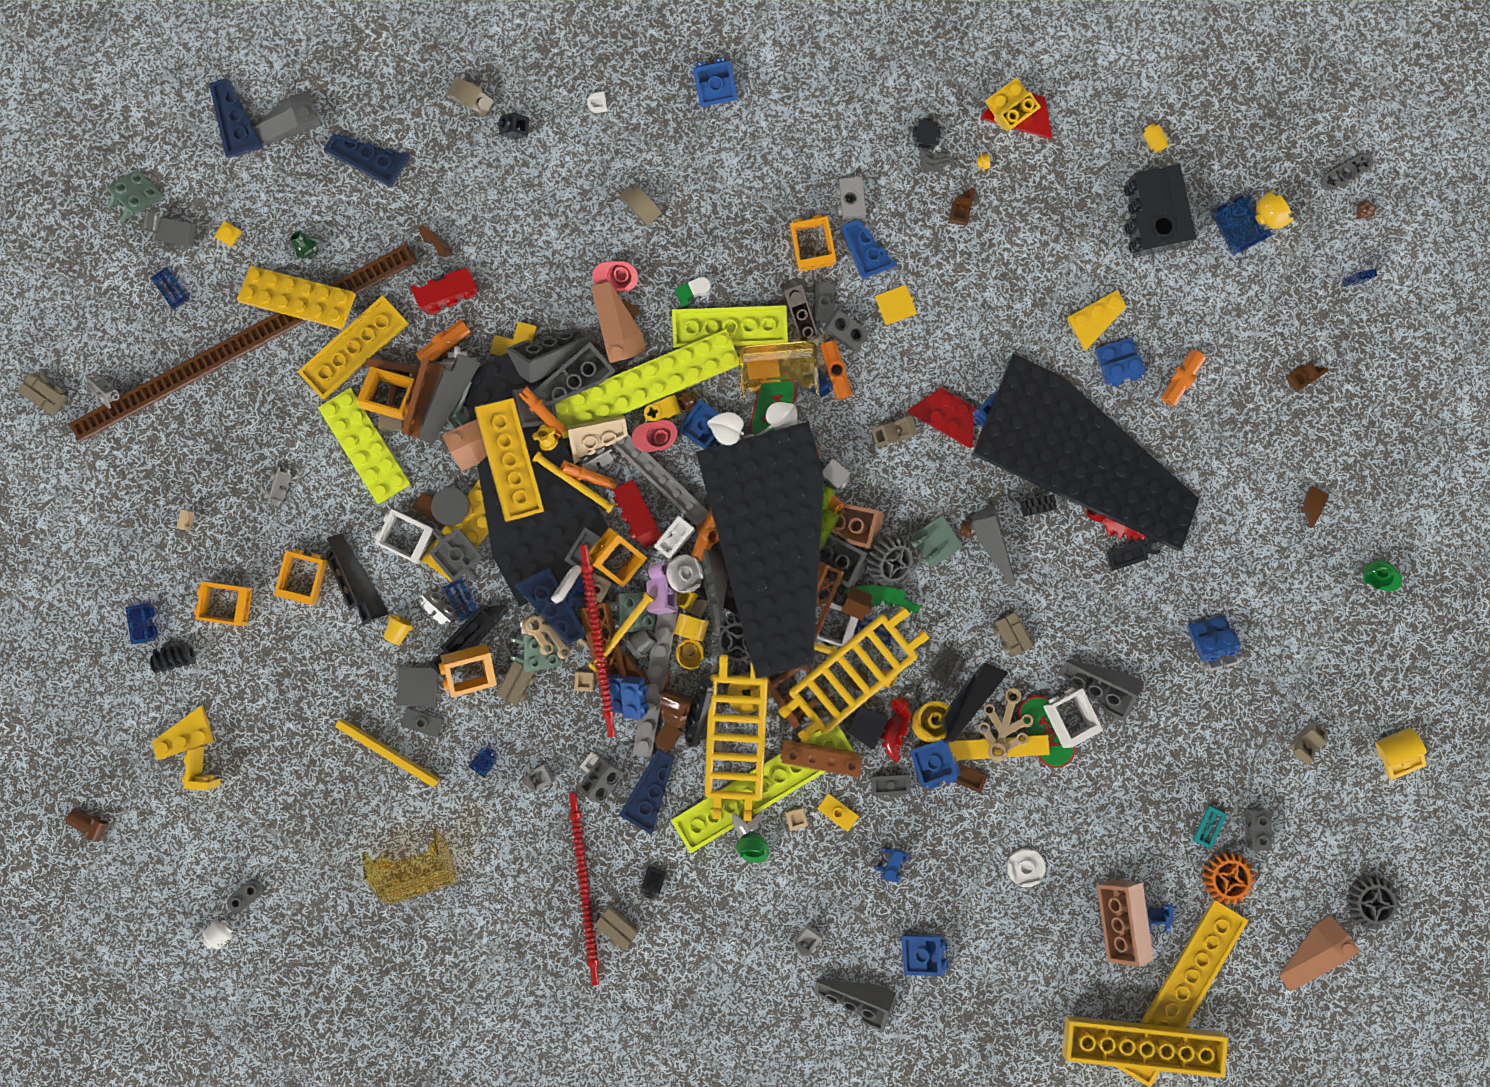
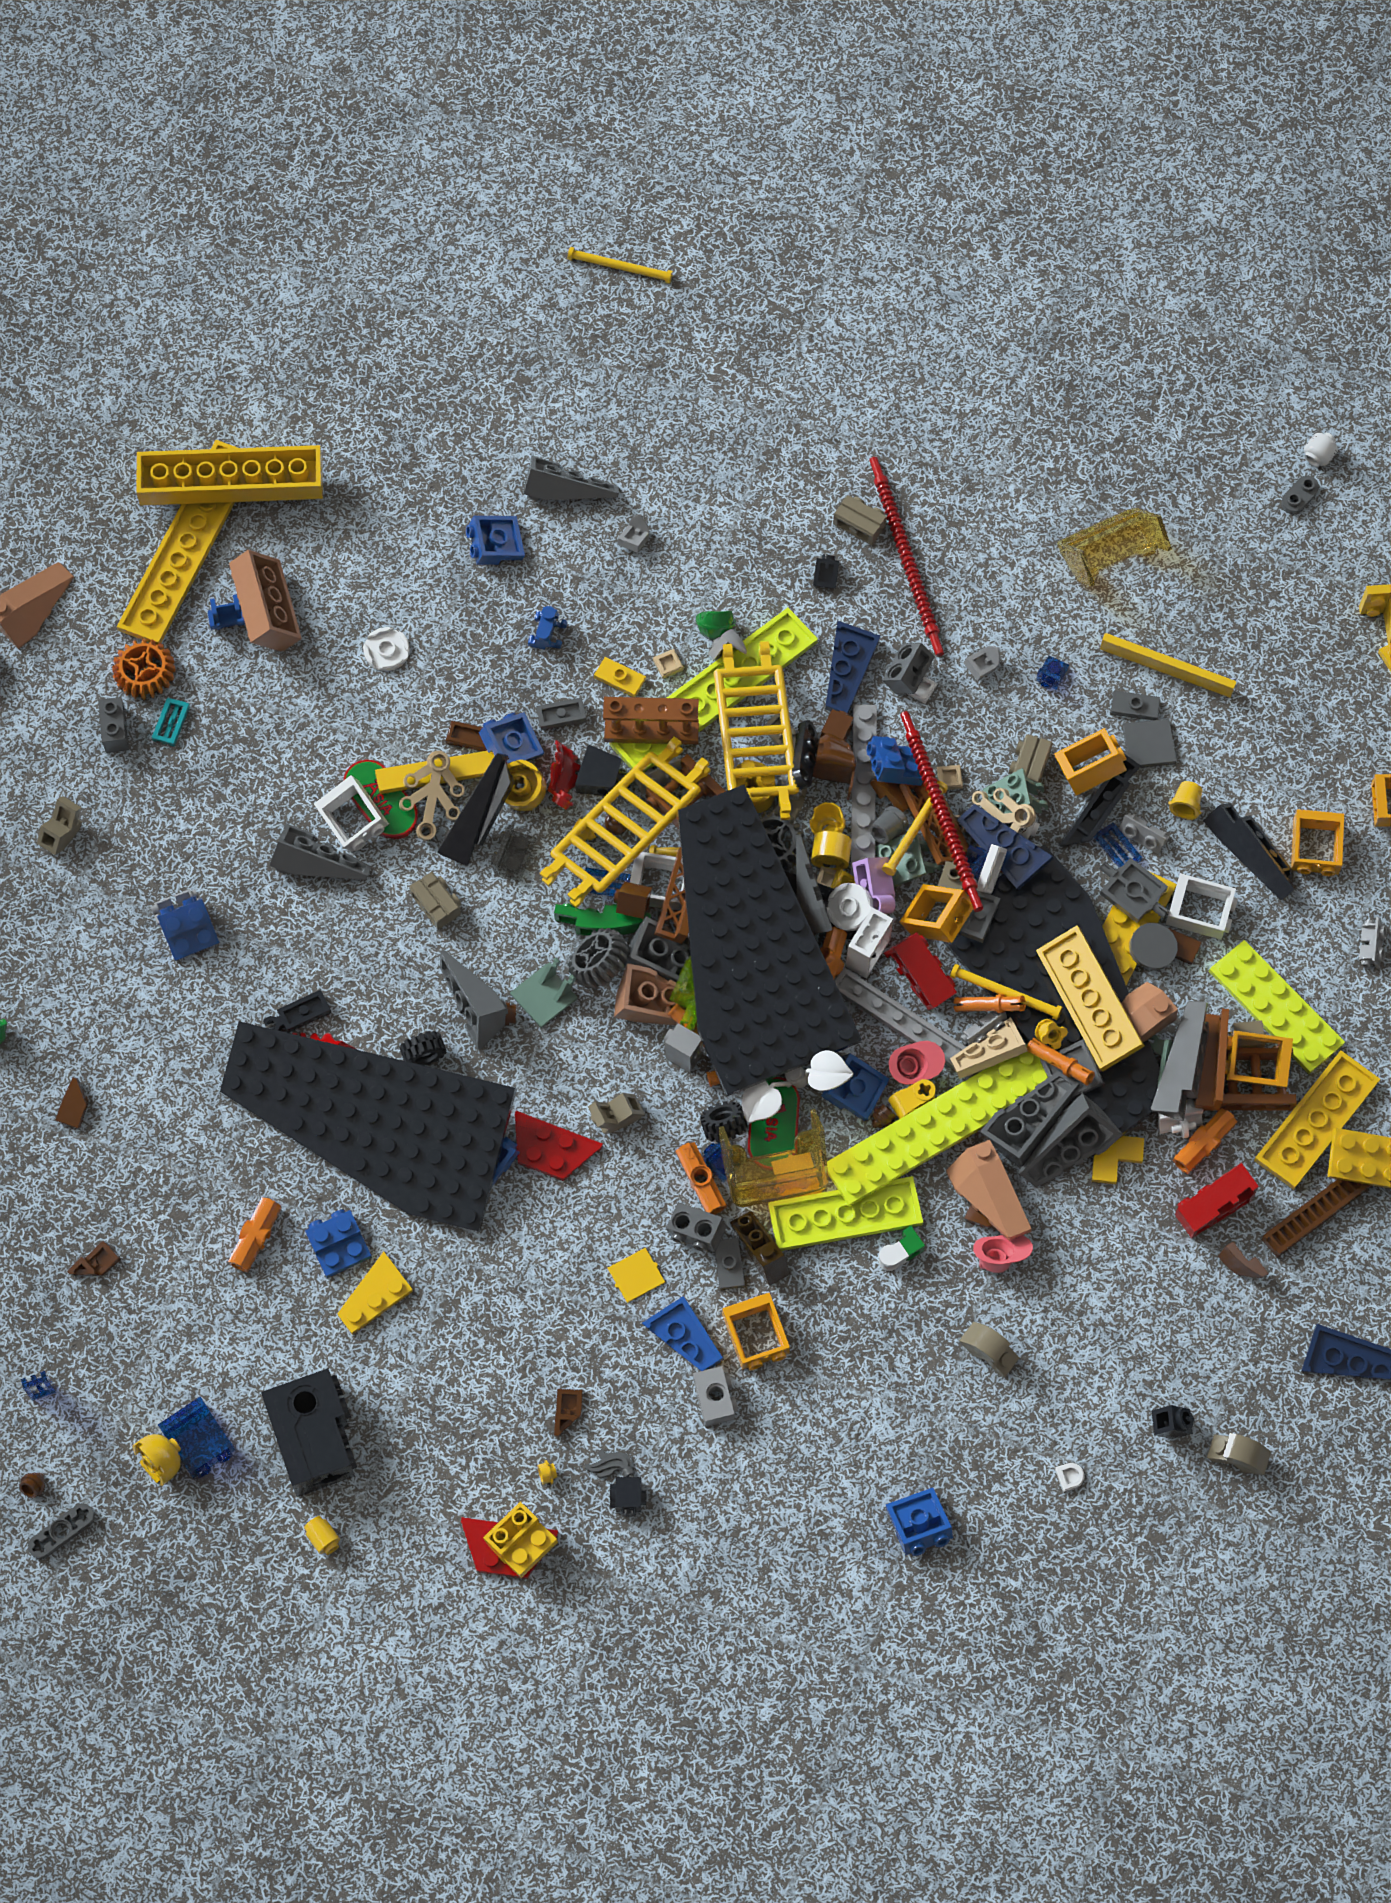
camera: 170 degrees right, 20 degrees down
(809, 402) = (725, 1115): none -> black tyre

